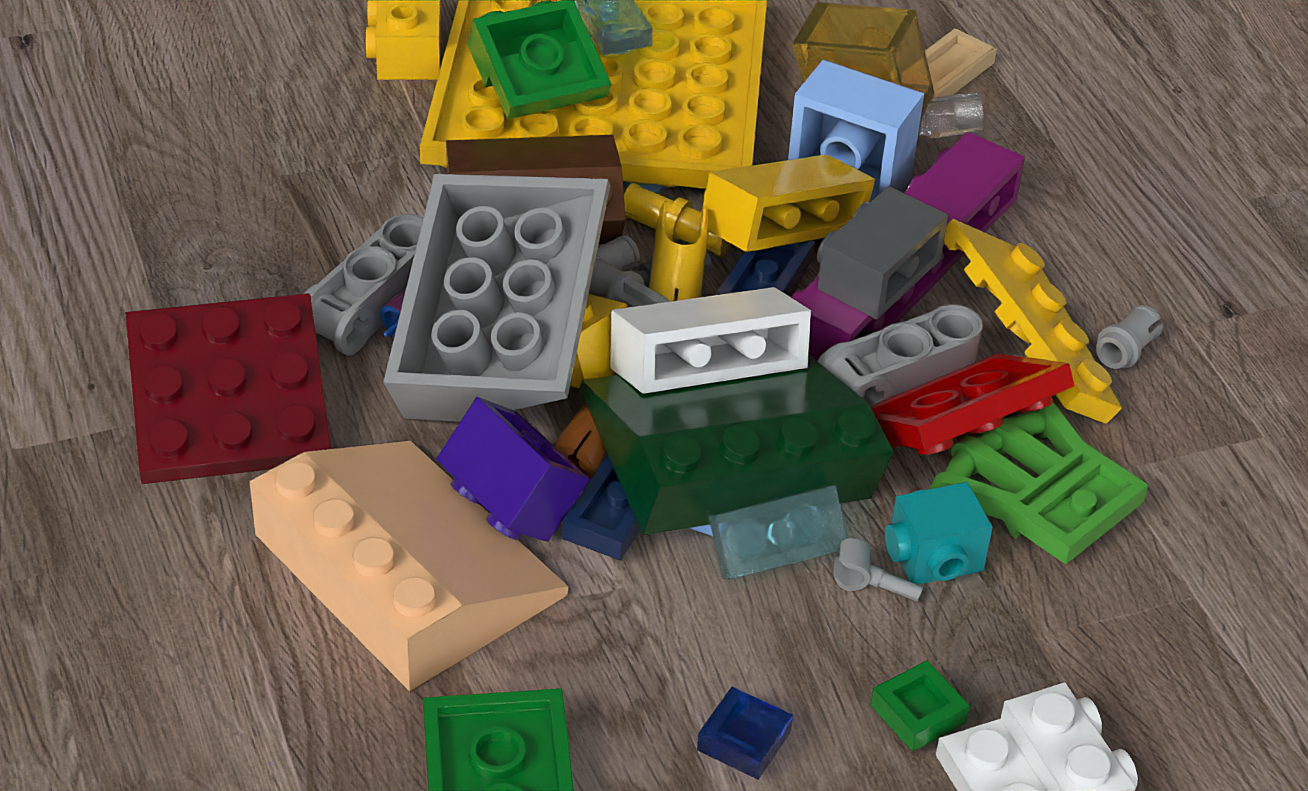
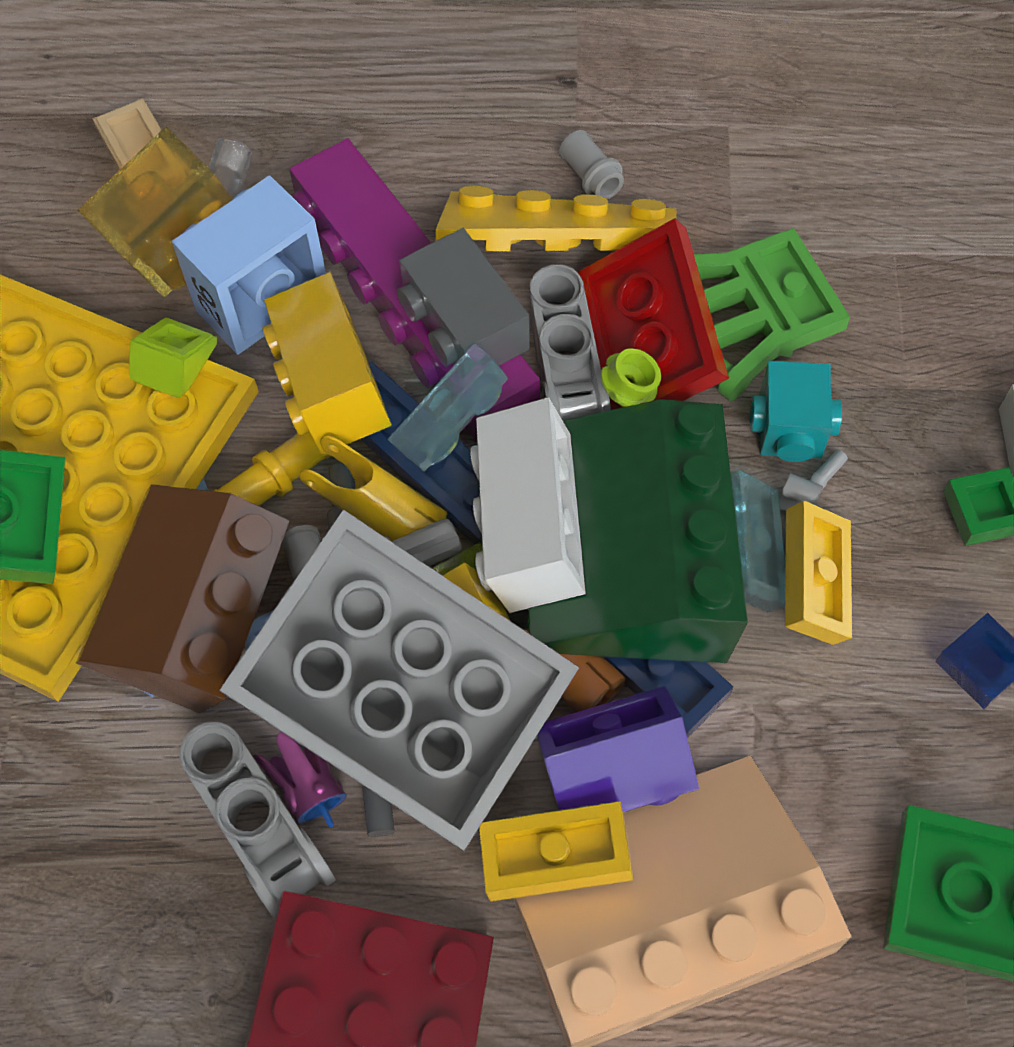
camera: 65 degrees left, 20 degrees up
(408, 443) = (555, 851): none -> yellow plate
(742, 118) = (169, 356): none -> lime slope
(771, 584) = (818, 573): none -> yellow plate
(794, 267) = (462, 393): none -> clear light blue plate
(892, 375) = (631, 377): none -> lime plate

